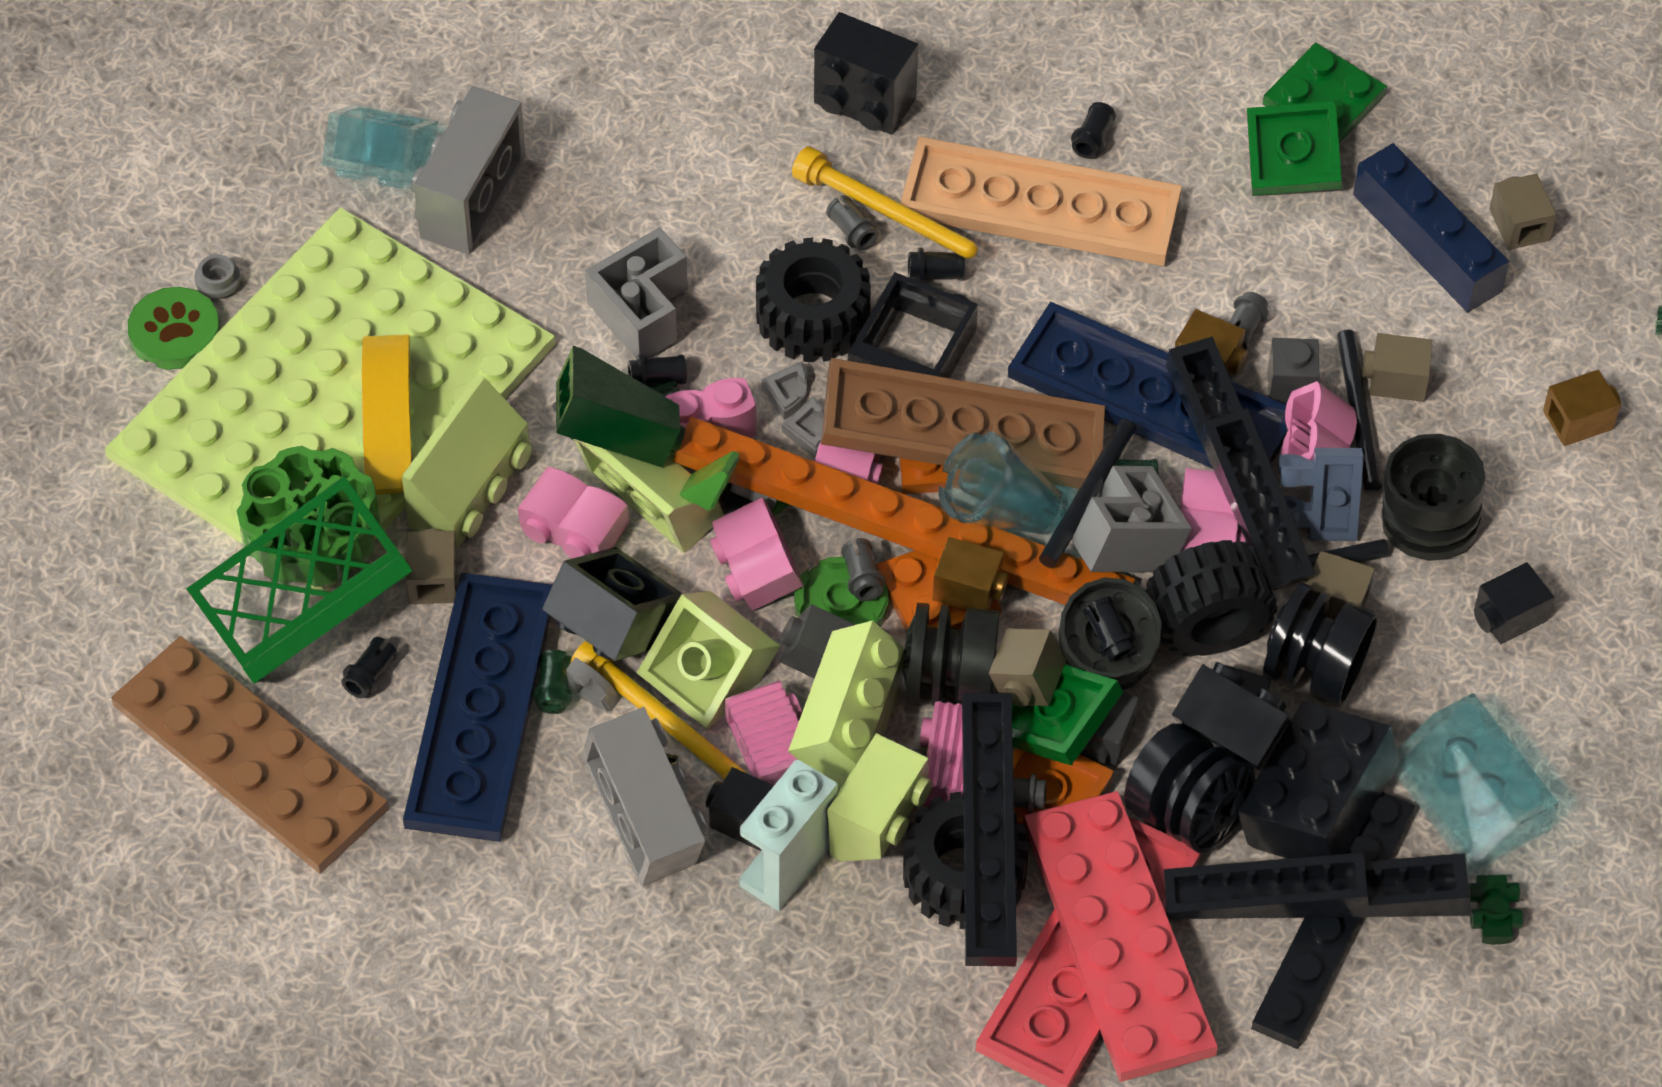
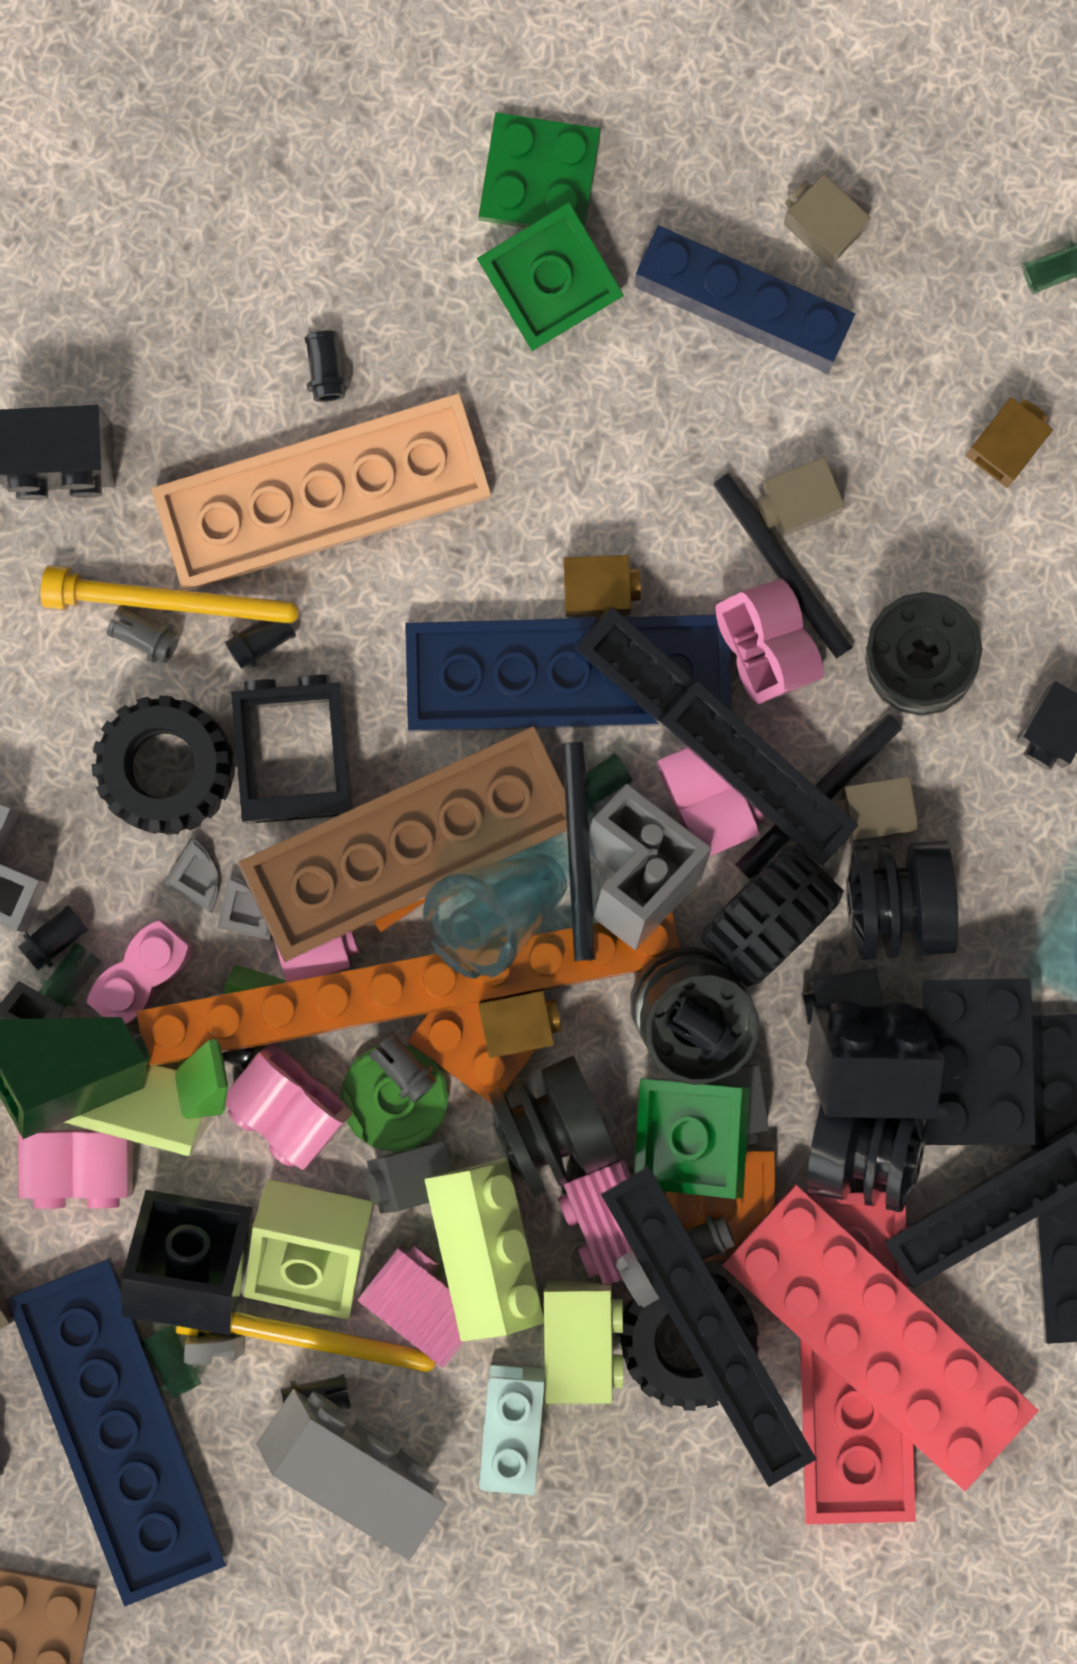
camera: 25 degrees left, 30 degrees up
(734, 801) = (443, 1399): black brick -> none
(952, 775) = (636, 1279): none -> light grey tile
(1028, 666) = (642, 1118): dark tan brick -> none
(1248, 313) = (613, 523): dark grey pin -> none
(1291, 366) = (699, 569): dark grey brick -> none
(1335, 491) = (813, 715): sand blue plate -> none

